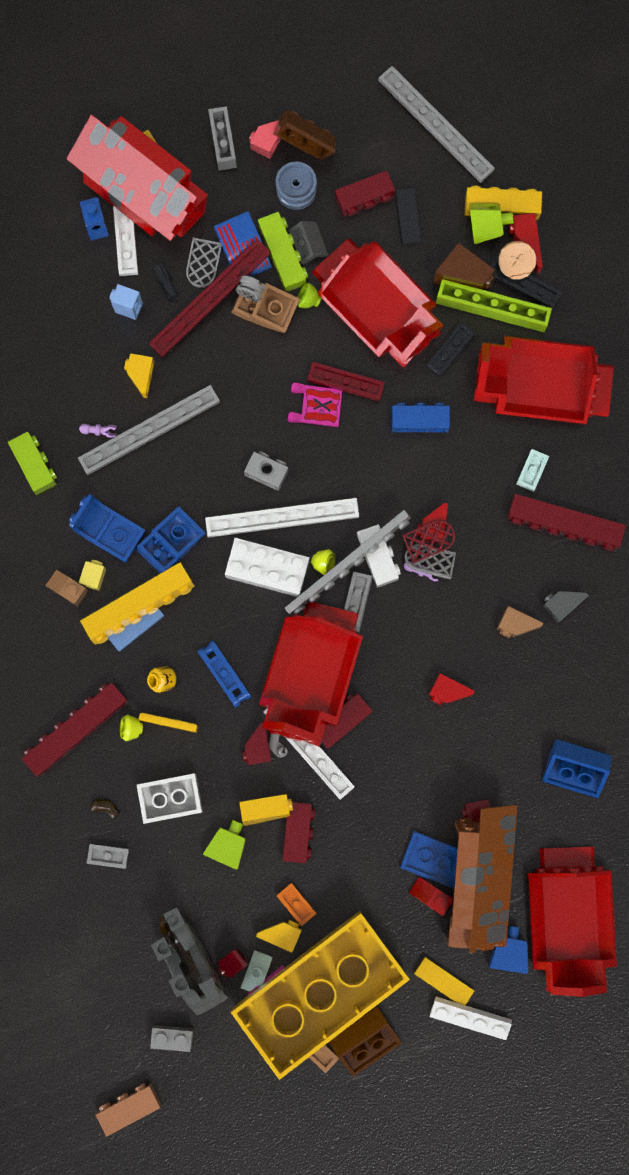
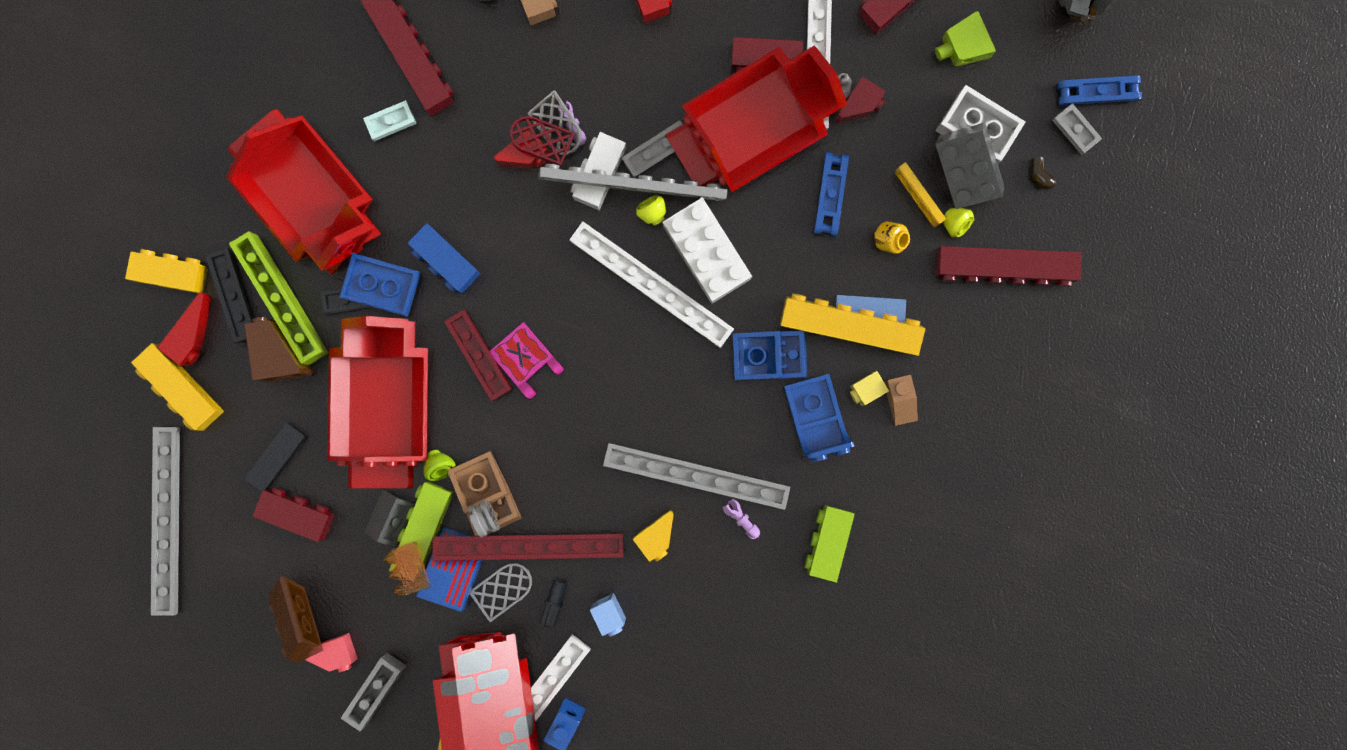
camera: 135 degrees left, 5 degrees up
(115, 895) = (1100, 90): none -> blue plate
(152, 763) = (970, 165): none -> dark grey brick
(265, 809) = (907, 36): yellow slope -> none
(267, 222) = (408, 569): none -> clear orange plate
(274, 479) = (625, 325): light grey brick -> none
(296, 185) = (336, 578): sand blue wheel -> none
(443, 368) = (380, 284): none -> blue tile
(488, 221) = (207, 380): lime torso -> none
(517, 260) = (216, 318): light nougat tile -> none
(575, 262) = (166, 271): none -> yellow brick

